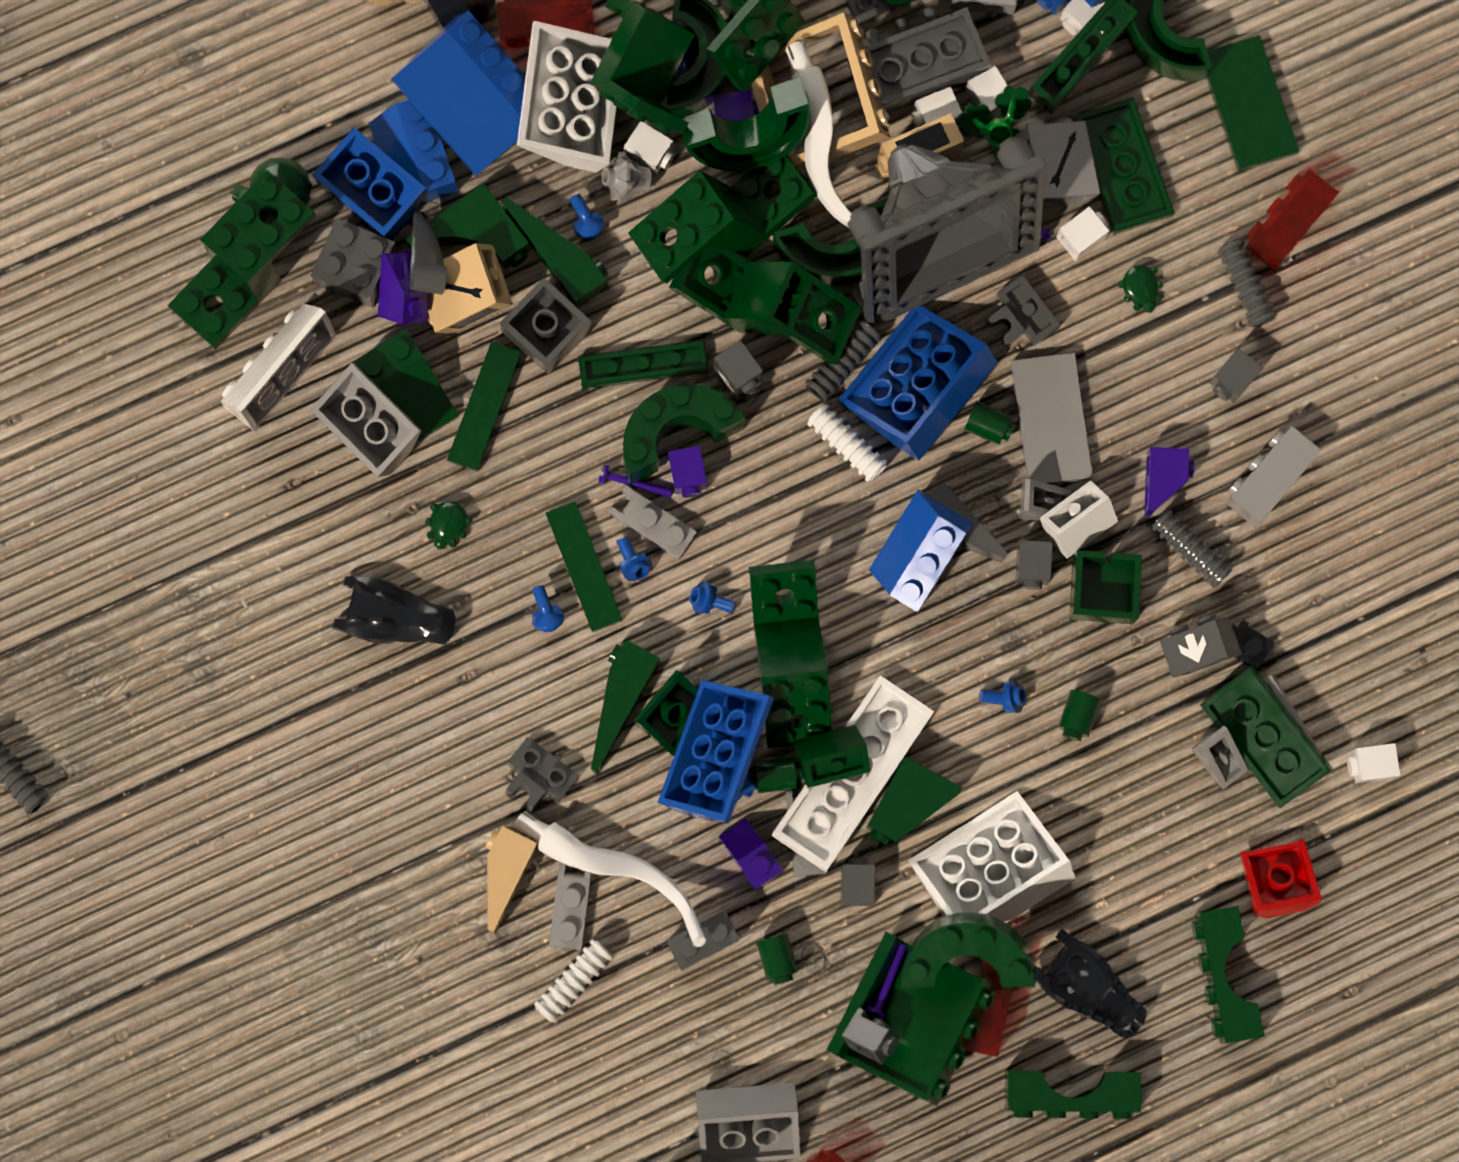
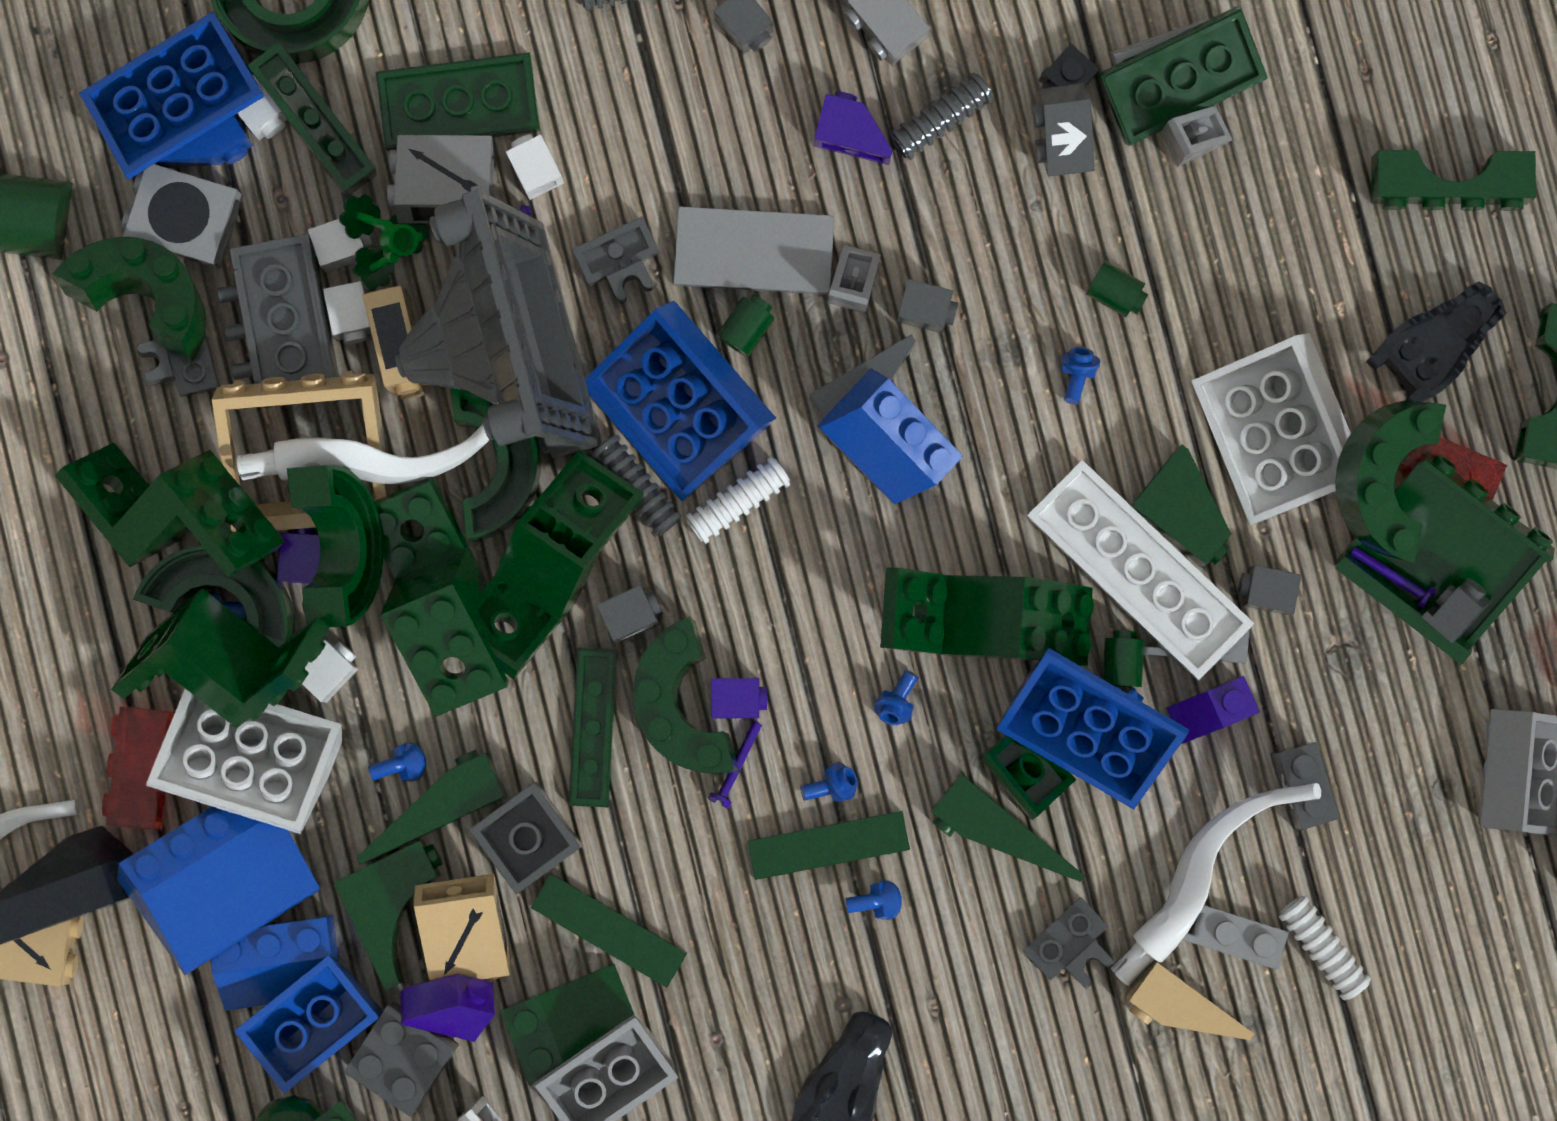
camera: 75 degrees left, 5 degrees up
(427, 263) = (427, 971): dark grey piece -> none
(447, 524) = (745, 1001): dark green piece -> none
(626, 177) = (358, 705): light grey rock -> none
(654, 524) = (792, 750): light grey hinge -> none
(777, 958) = (1341, 701): dark green brick -> none
(832, 756) = (1118, 590): dark green panel -> none
(1079, 519) = (885, 242): white brick -> none
(1105, 590) = (973, 227): dark green piece -> none
(1141, 287) = (613, 110): dark green piece -> none
(1280, 879) = (1353, 94): red slope -> none

